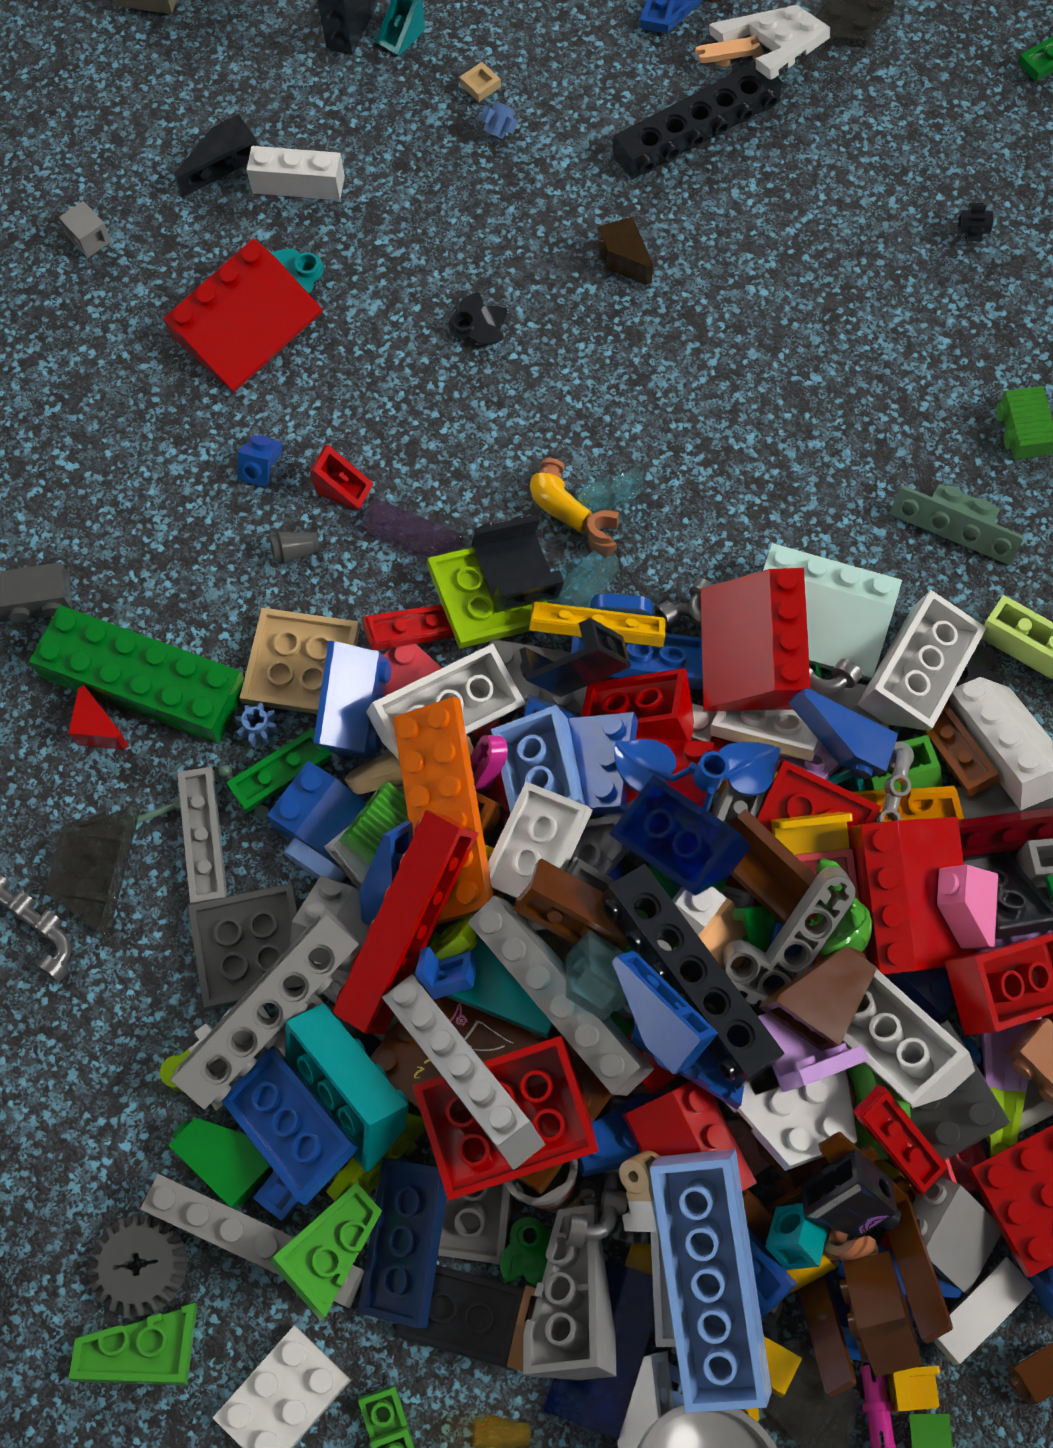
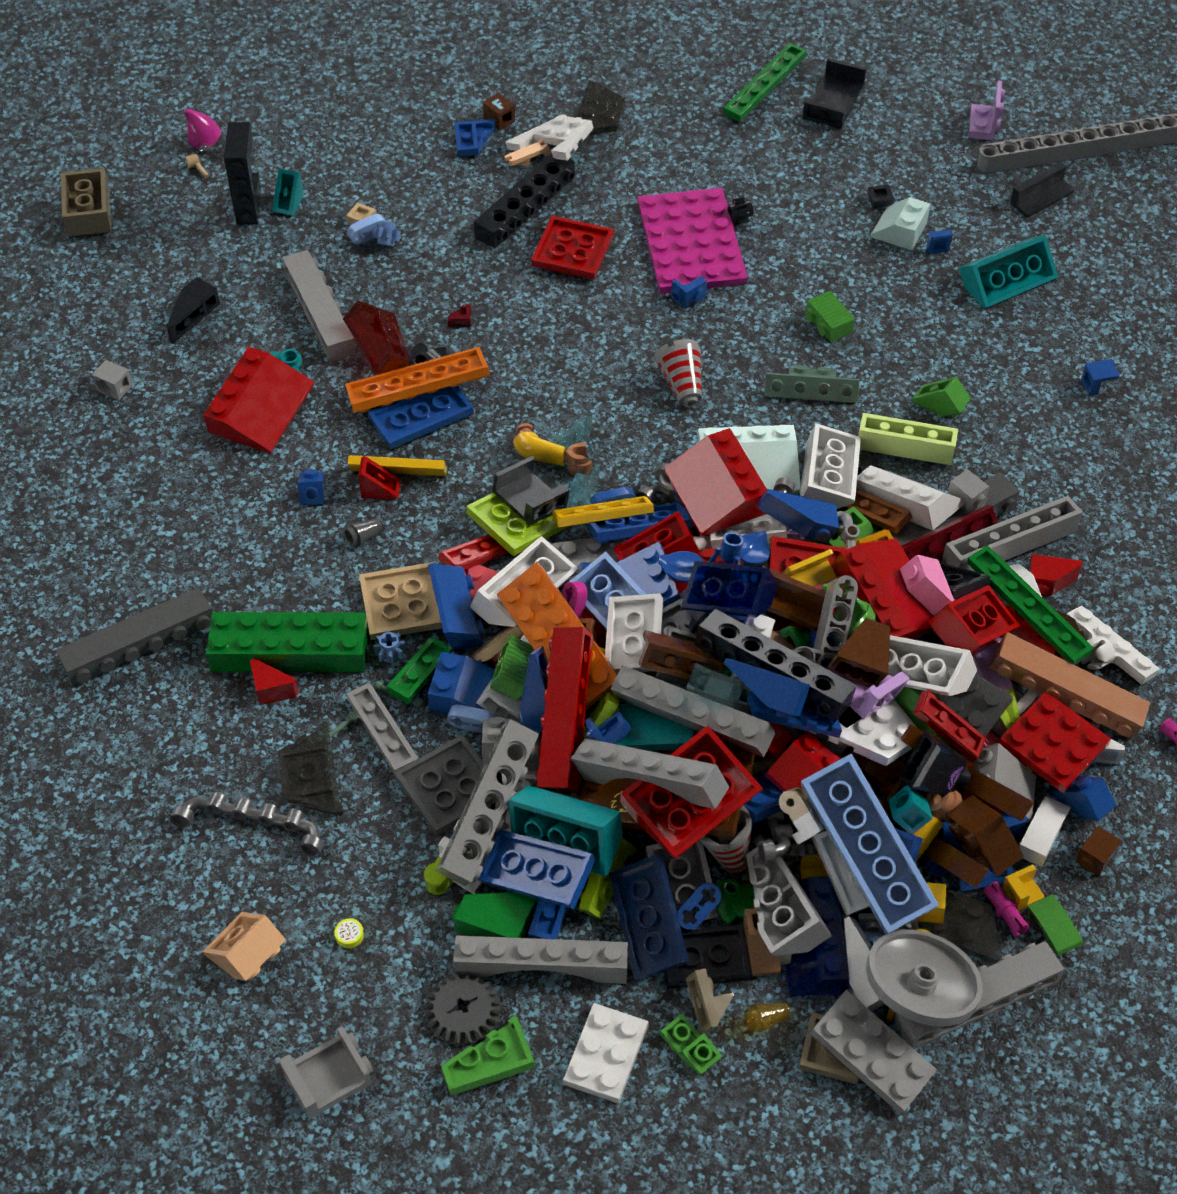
camera: 25 degrees left, 15 degrees down
(48, 1106) = (349, 933): none -> tile
(295, 173) = (255, 303): white brick -> none
(326, 1249) = (600, 933): bright green wing -> none
(374, 199) = (319, 305): none -> light grey brick
(377, 466) = (403, 465): none -> yellow tile
(410, 530) = (440, 499): clear purple plate -> none
(422, 274) = (377, 336): none -> clear red wedge
(431, 1396) = (707, 1007): none -> dark tan slope
(435, 397) = (418, 416): none -> blue plate
(446, 349) = (417, 379): none -> orange plate
(470, 104) = (363, 230): none -> light blue beam
(480, 1253) = (703, 911): none -> blue beam
(545, 269) = (461, 317): none -> dark red tile
(602, 656) = (607, 532): black panel -> none
(624, 250) = (513, 289): dark brown slope -> none
(729, 210) = (572, 247): none -> red plate
(791, 446) = (682, 370): none -> light grey cone
(854, 329) = (690, 293): none -> blue bracket
(892, 246) = (691, 238): none -> dark pink plate

